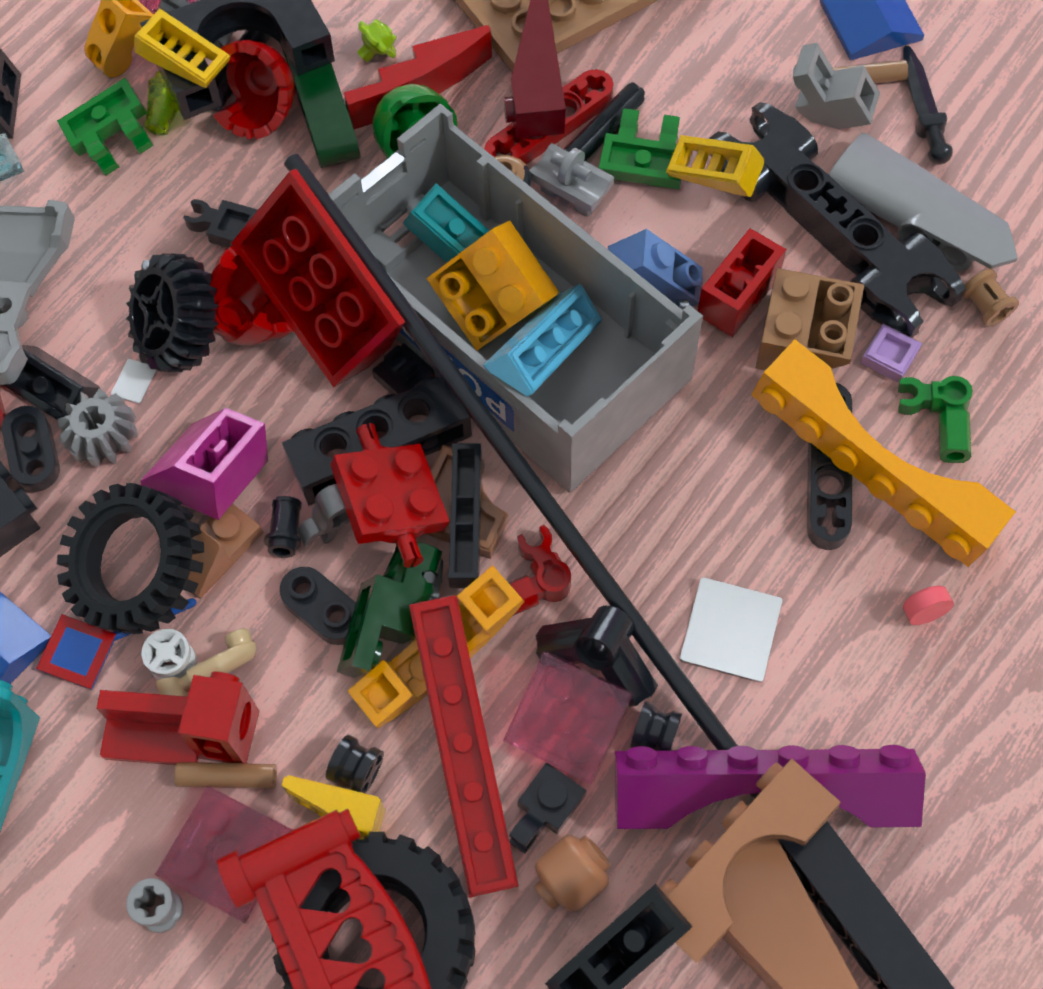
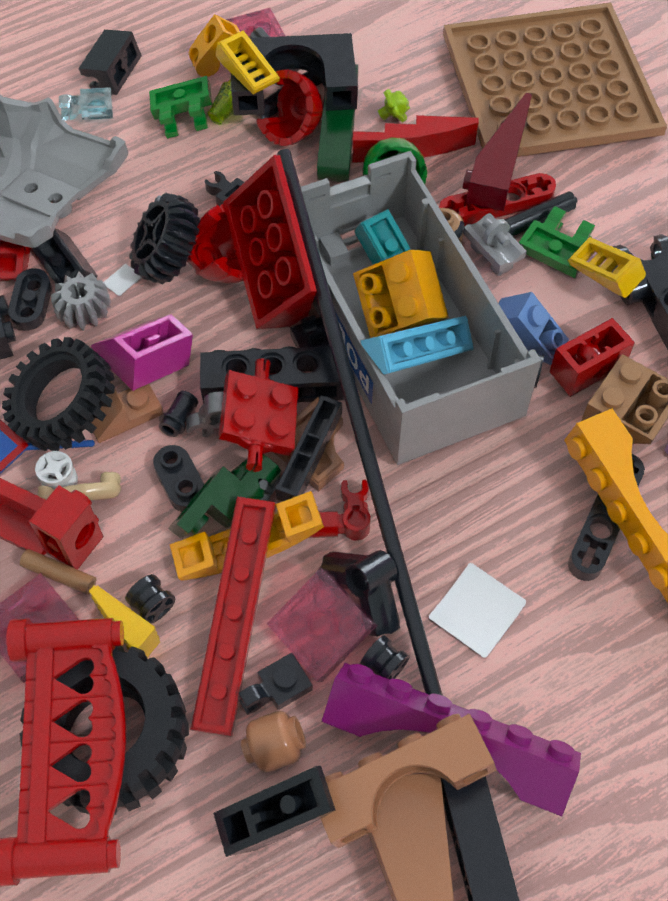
camera: 20 degrees right, 5 degrees down
(928, 605) = (640, 648): coral tile -> none

